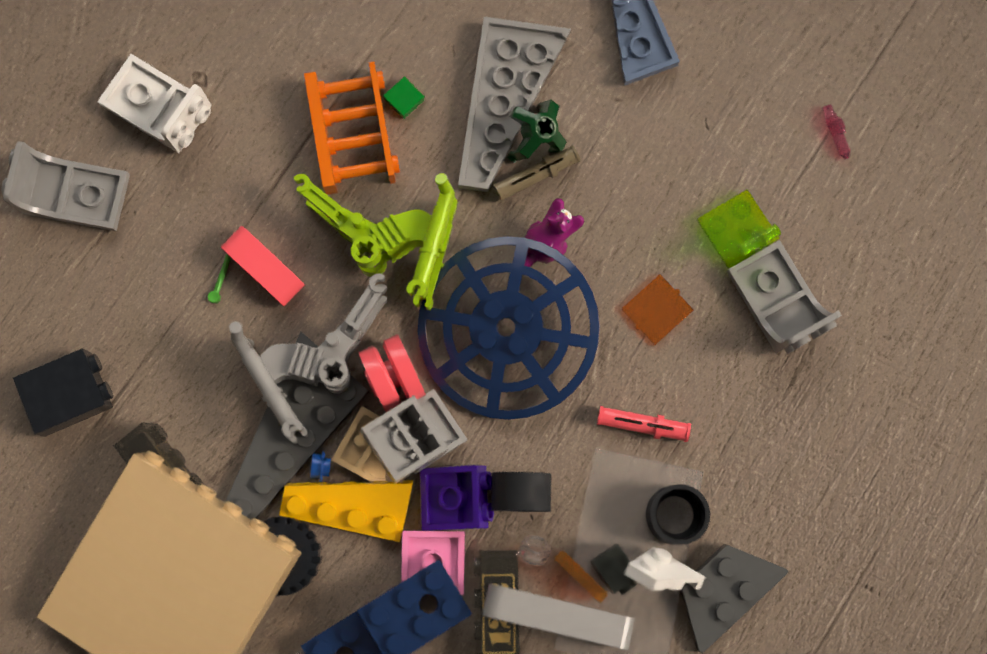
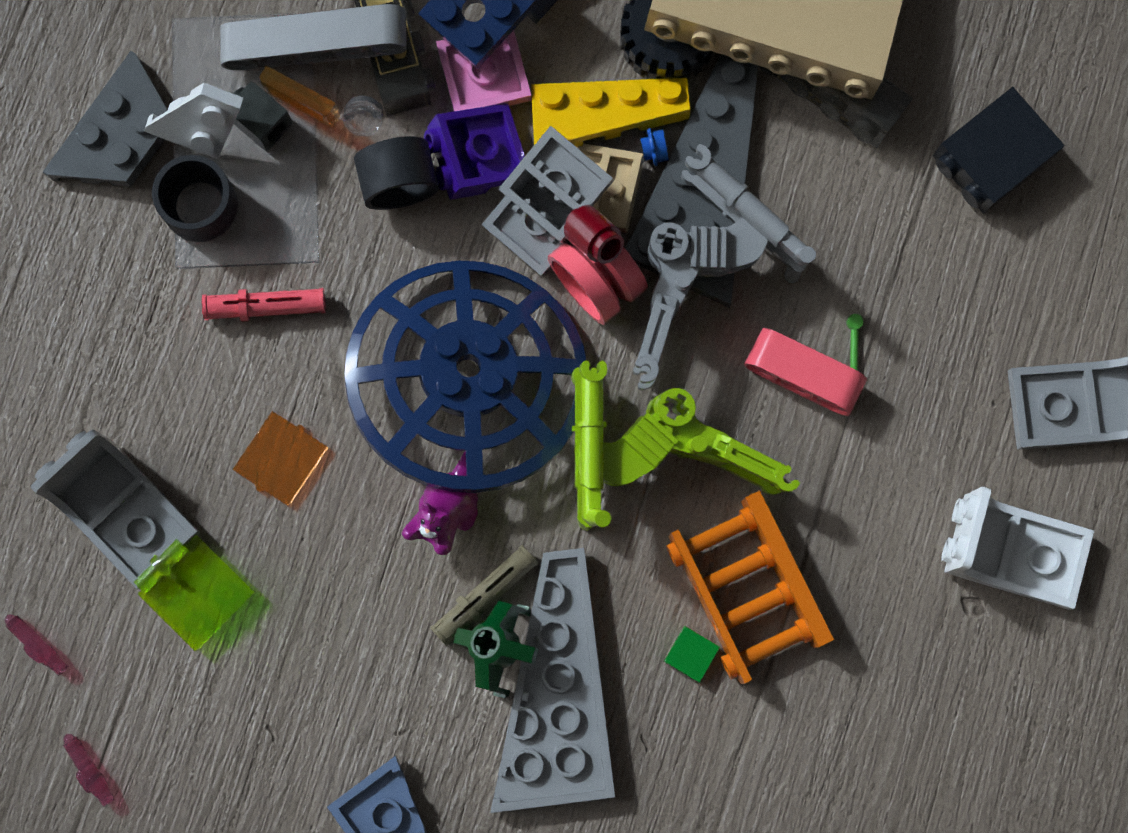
camera: 165 degrees right, 0 degrees up
(388, 386) = (593, 234): none -> dark red brick
(857, 222) = (34, 645): none -> clear pink piece

